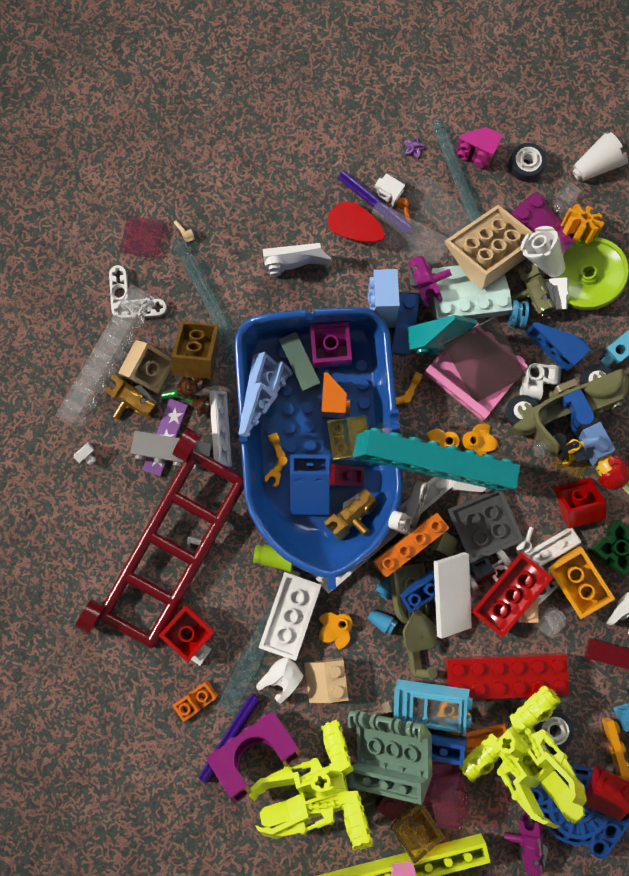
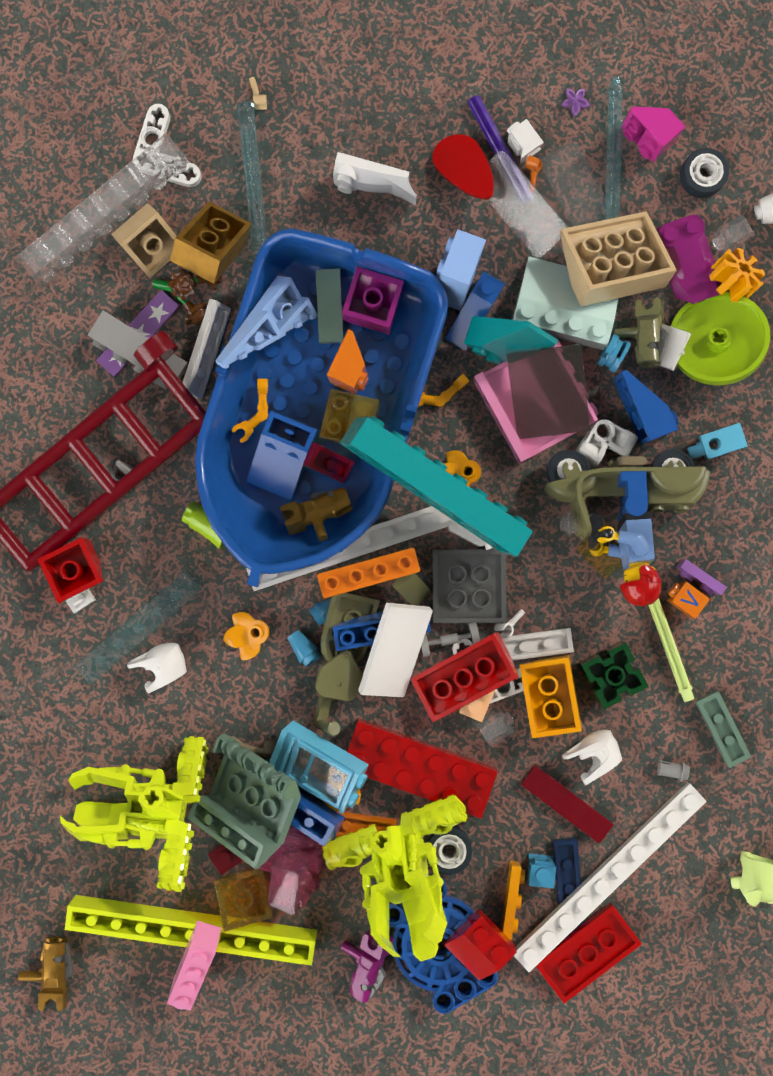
camera: 25 degrees right, 5 degrees up
(85, 453) = (37, 316): white tile -> none
(132, 397) = (117, 270): pearl gold piece -> none
(142, 237) = (205, 81): clear pink tile -> none
(195, 700) = (53, 651): orange slope -> none
(226, 759) = (59, 731): magenta arch -> none
(233, 731) = (75, 708): dark purple axle -> none
(290, 616) = (198, 598): white plate -> none
(326, 681) = (211, 689): tan slope -> none
(407, 522) = (380, 545): white beam -> none
(424, 280) = (518, 267): magenta piece -> none
(482, 440) = (508, 487): light orange plate -> none
(482, 568) = (443, 634): black tile -> none
(544, 250) = (674, 289): white cone -> none
(555, 620) = (501, 727): clear plate -> none
(580, 503) = (591, 605): red slope -> none

